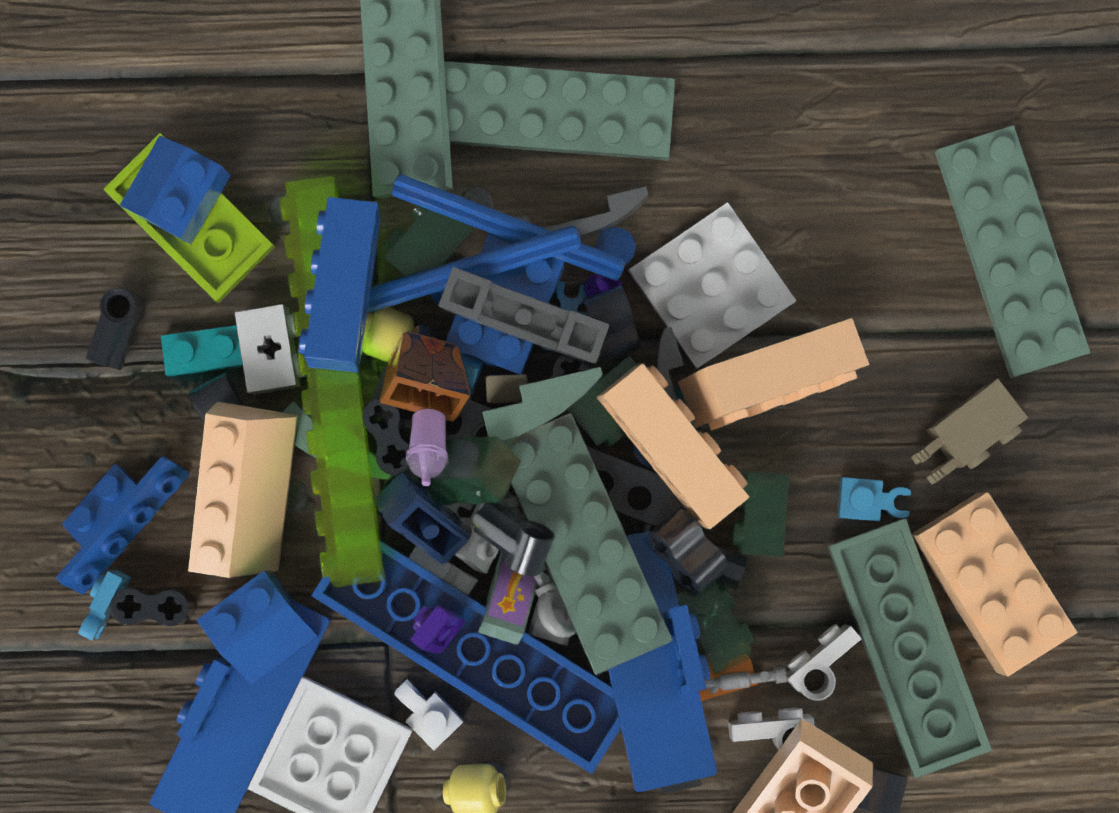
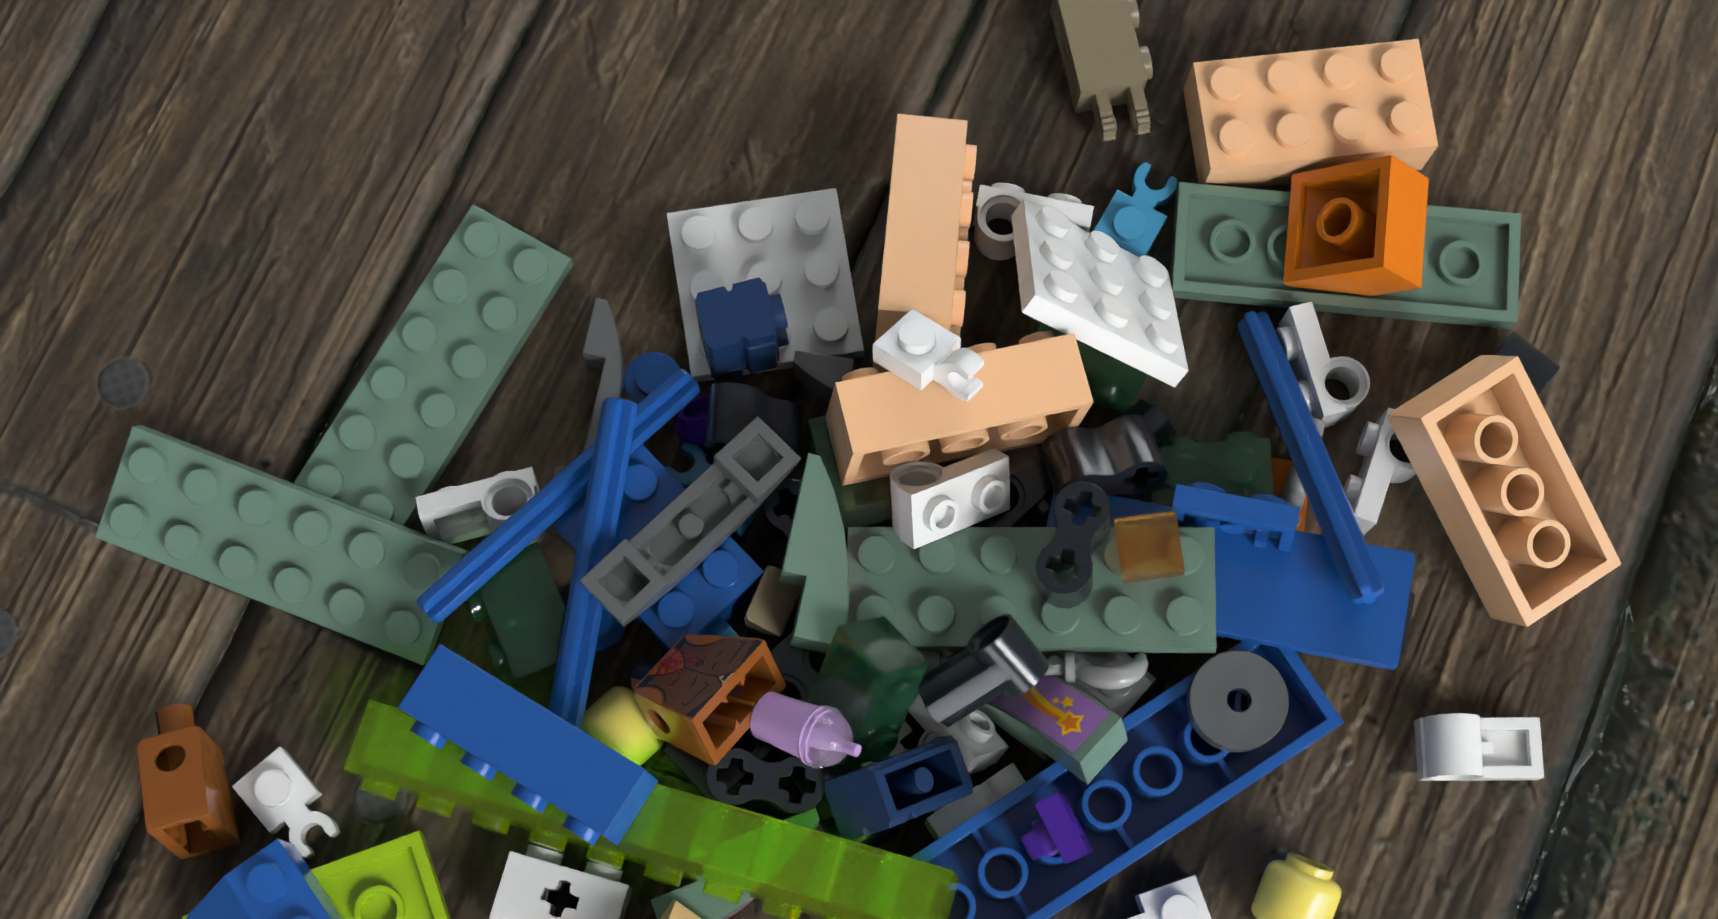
camera: 75 degrees left, 10 degrees down
(234, 94) = (185, 786): none -> dark orange torso
(258, 152) = (281, 797): none -> white plate
(481, 179) = (476, 507): none -> white plate
(575, 721) = (1260, 685): none -> dark grey piece
(609, 461) = (940, 501): none -> white plate
(615, 557) = (1073, 544): none -> black axle
(638, 604) = (1149, 547): none -> clear orange tile
(663, 286) = (741, 328): none -> dark blue brick
(689, 410) = (925, 352): none -> white plate
(753, 681) = (1311, 459): none -> blue axle
(795, 499) = (1097, 292): none -> white plate
(844, 451) = (1001, 202): none -> white plate
(925, 647) = (1357, 228): none -> orange slope

